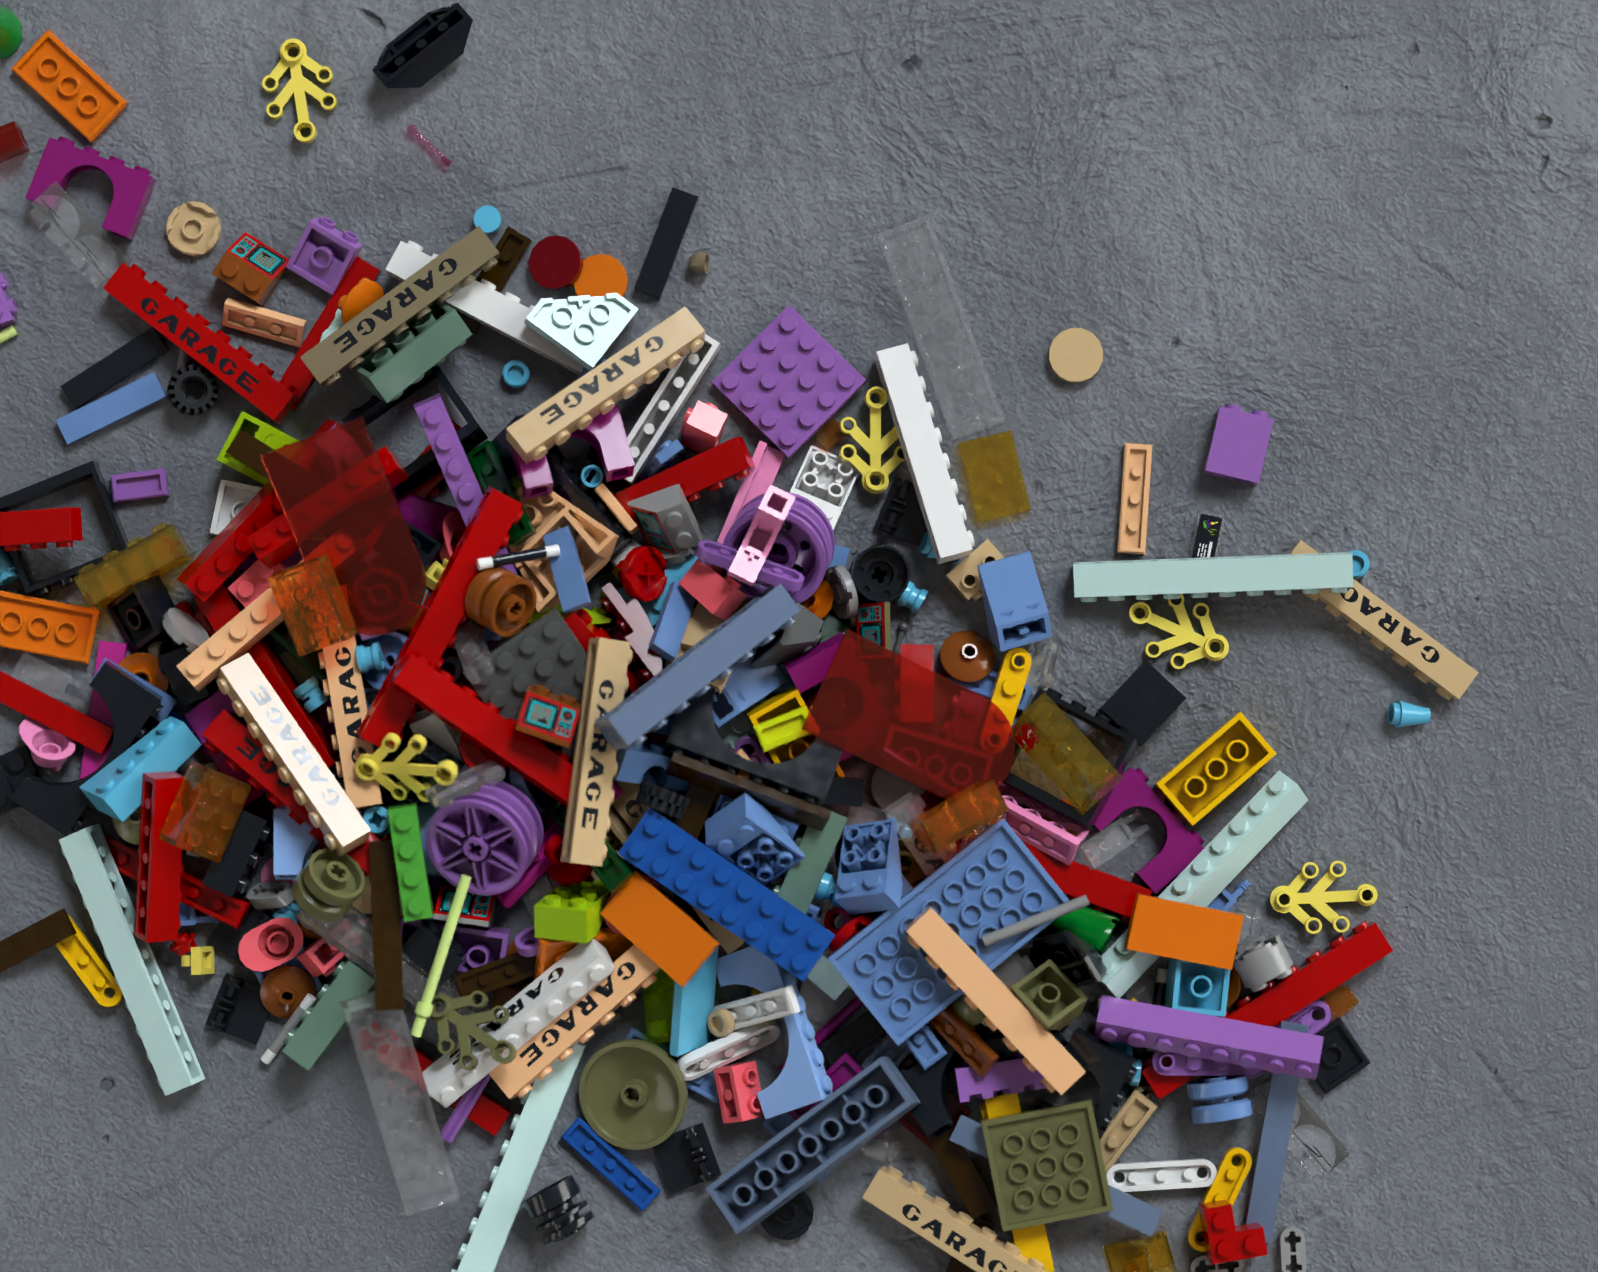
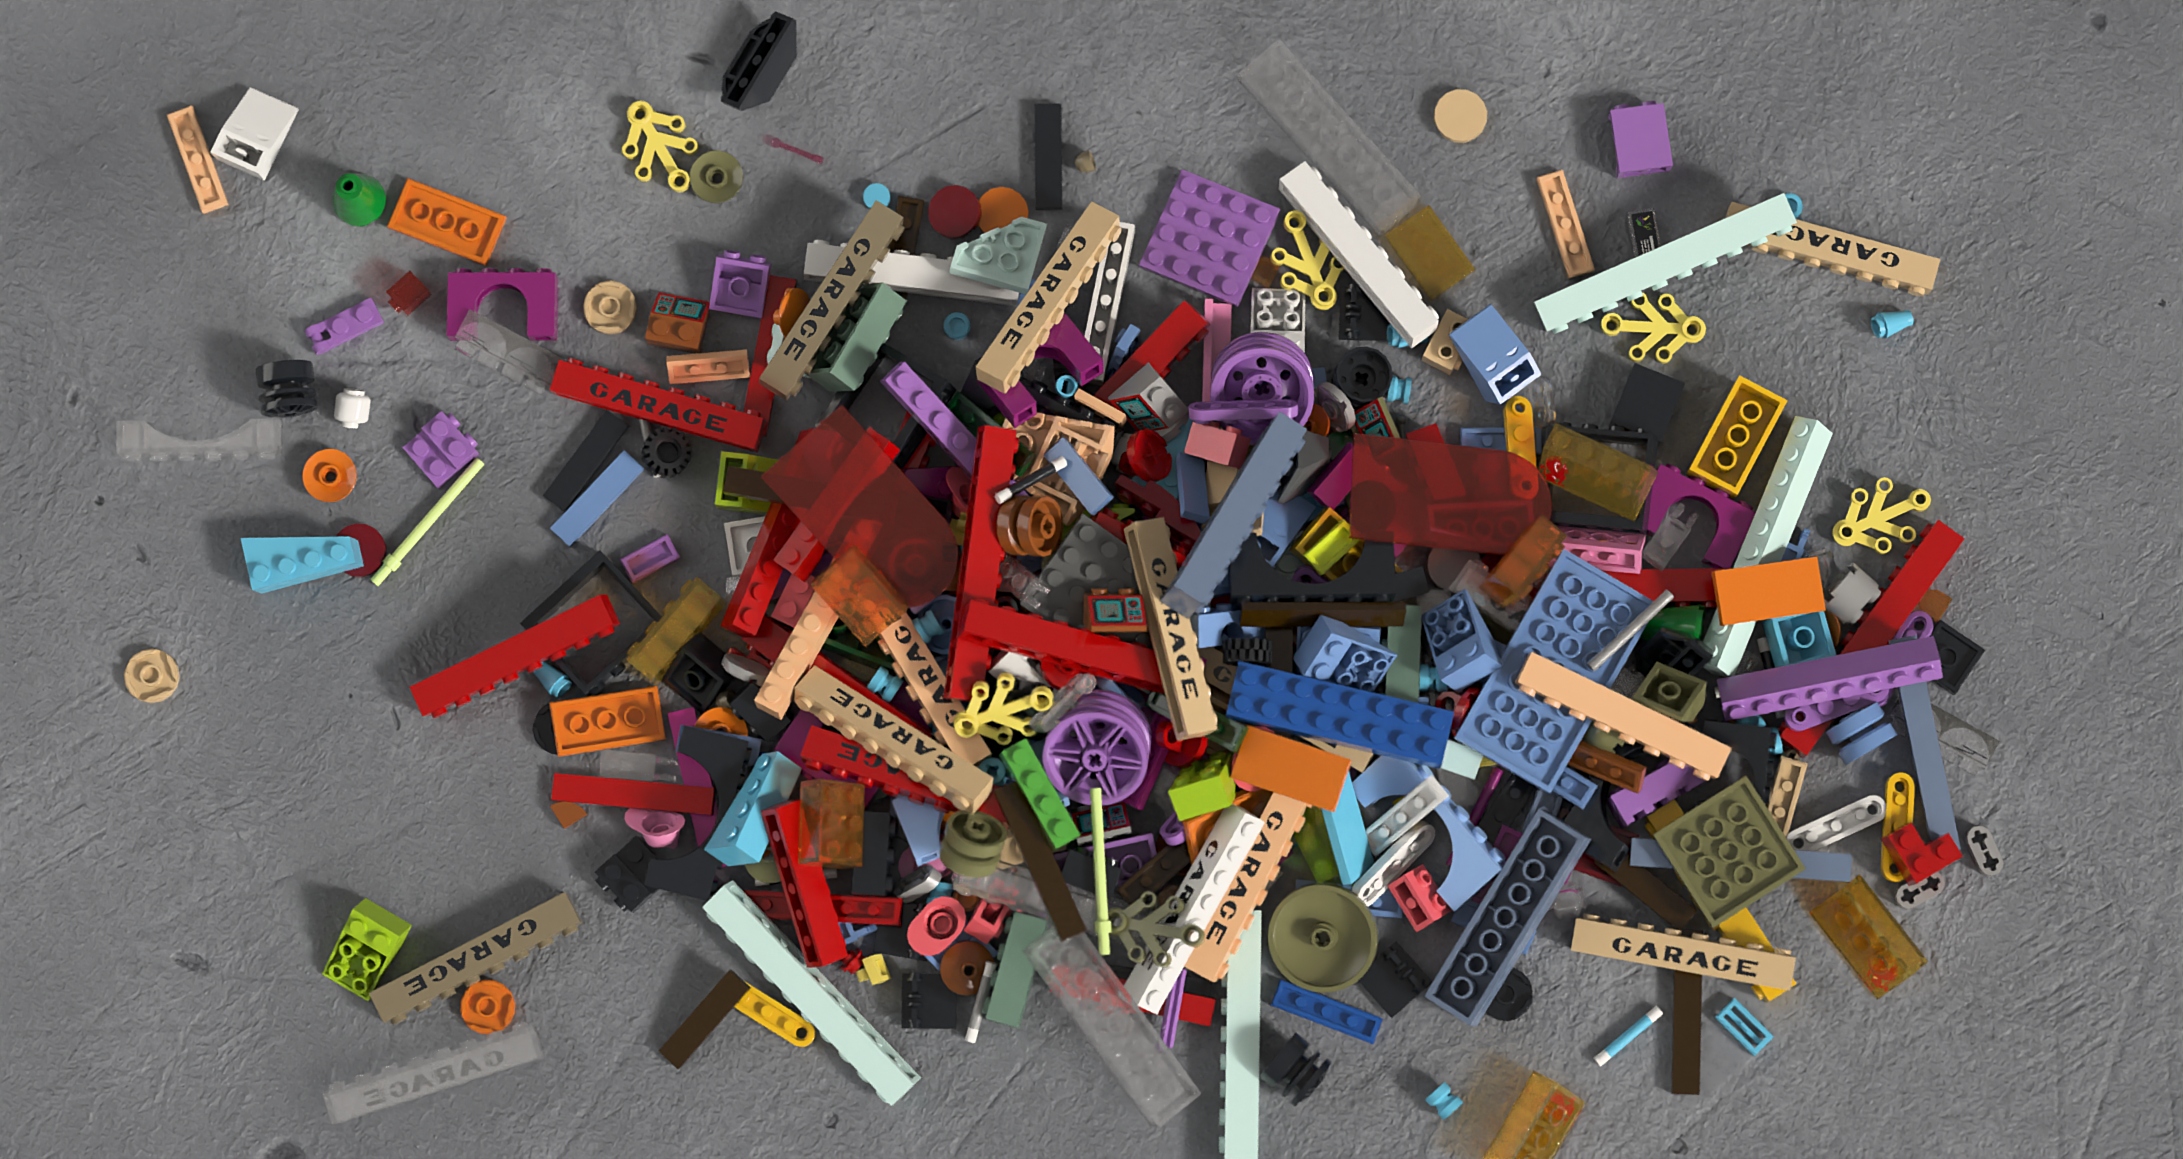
camera: 20 degrees left, 5 degrees down
(338, 128) = (713, 164): none -> olive dish
(702, 427) = (1148, 306): coral brick -> none
(721, 1022) = (1377, 840): tan tile -> none
(761, 535) = (1245, 374): bright pink arch -> none
(964, 667) = (1468, 432): dark orange dish -> none

